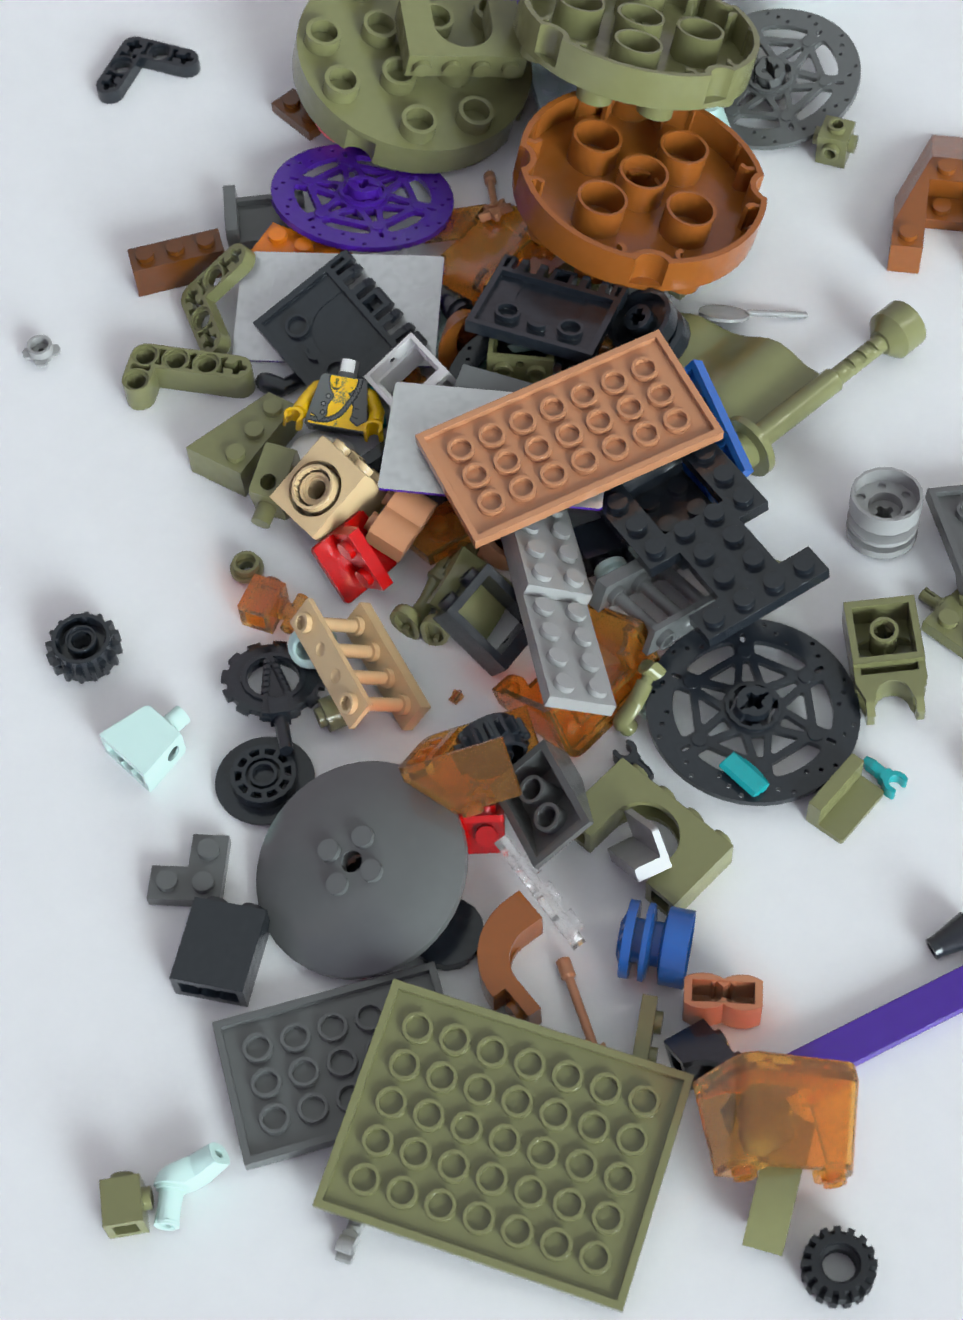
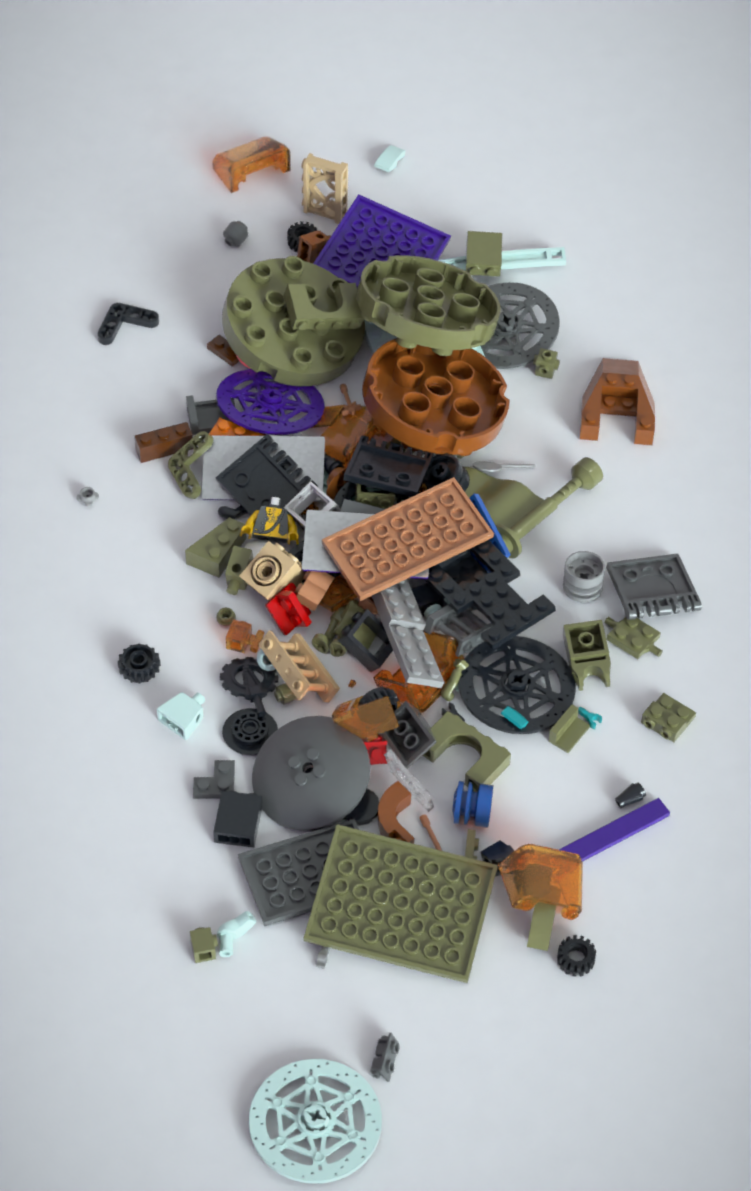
camera: 10 degrees left, 5 degrees down
(184, 370) = (176, 505): olive beam -> none
(642, 853) = (464, 758): light grey panel -> none
(730, 1001) = (511, 831): nougat brick -> none

